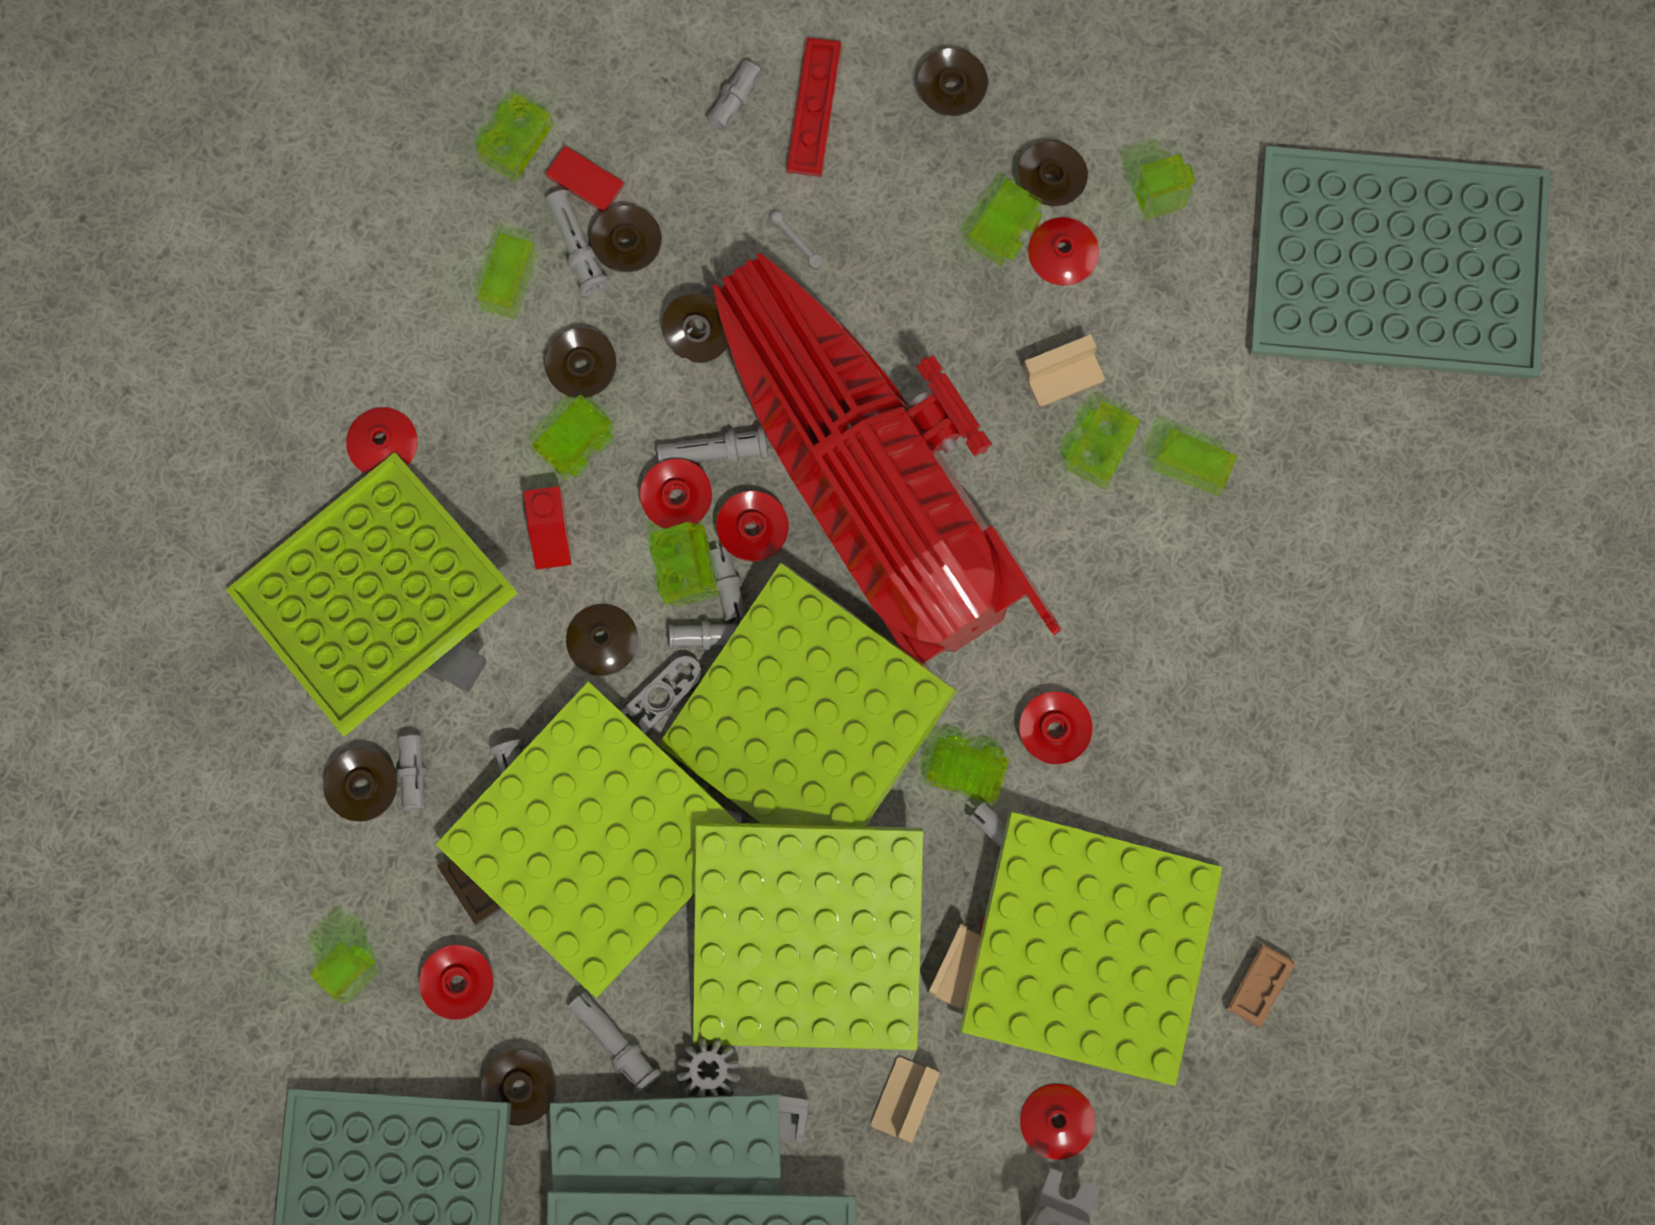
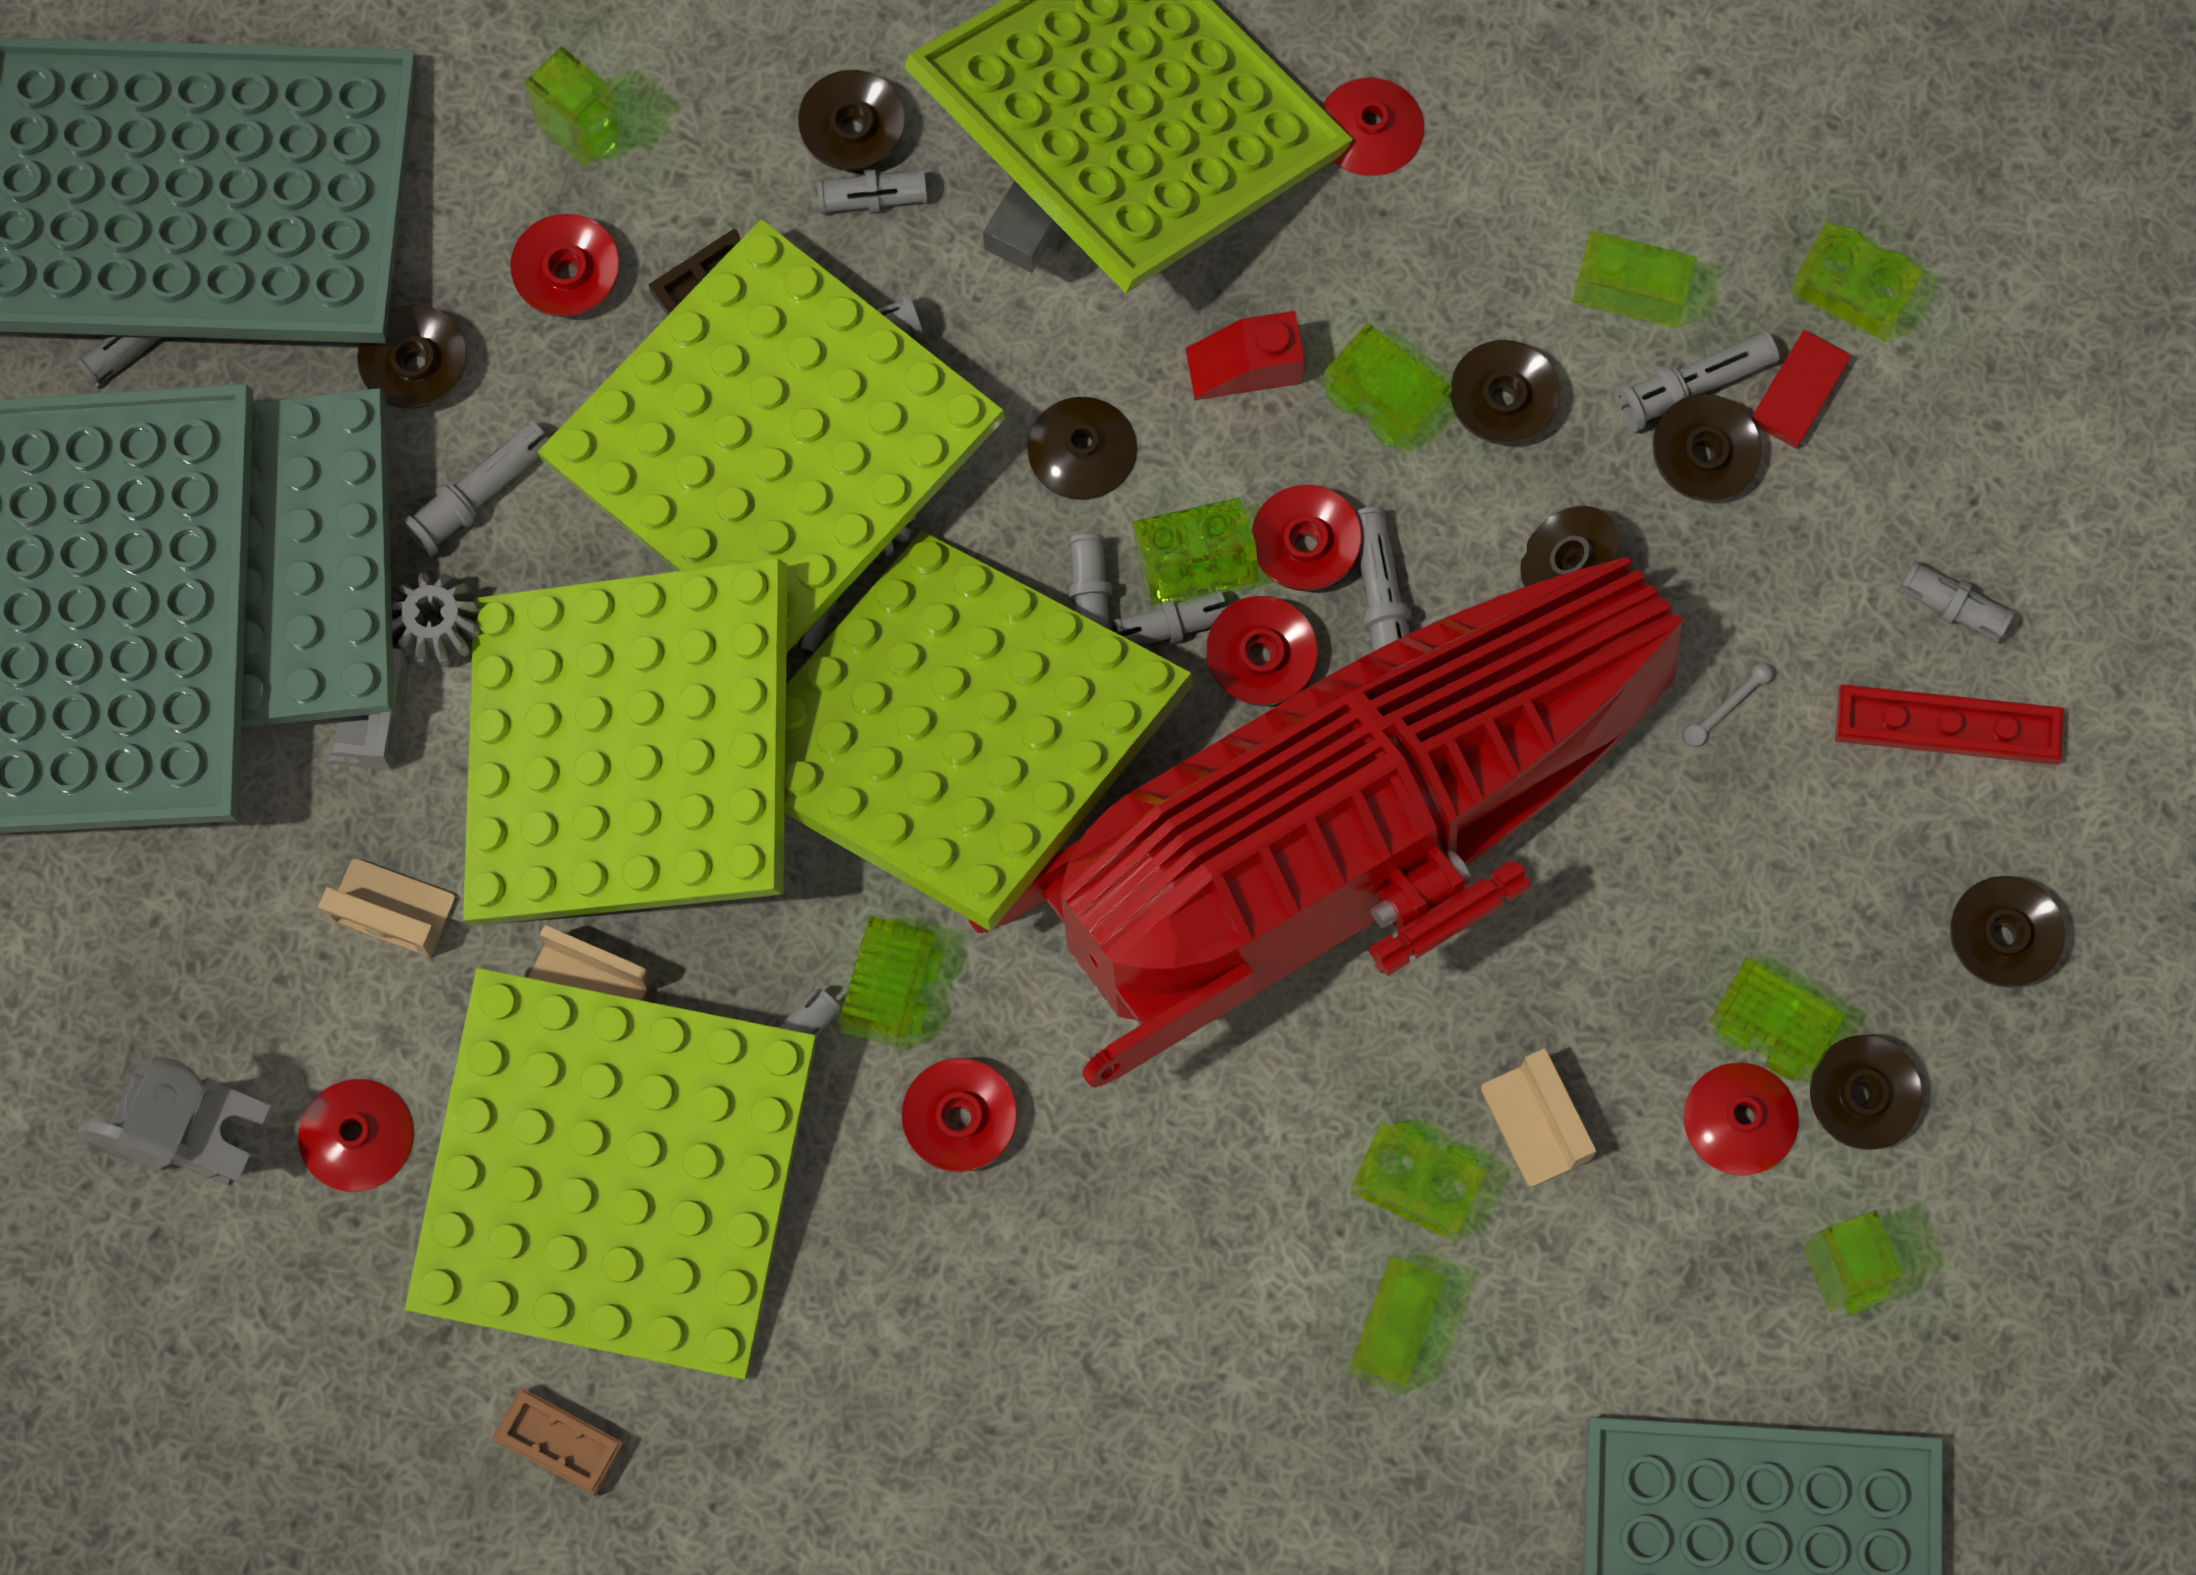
camera: 85 degrees right, 5 degrees down
(685, 686) = (1030, 547): light grey beam -> none

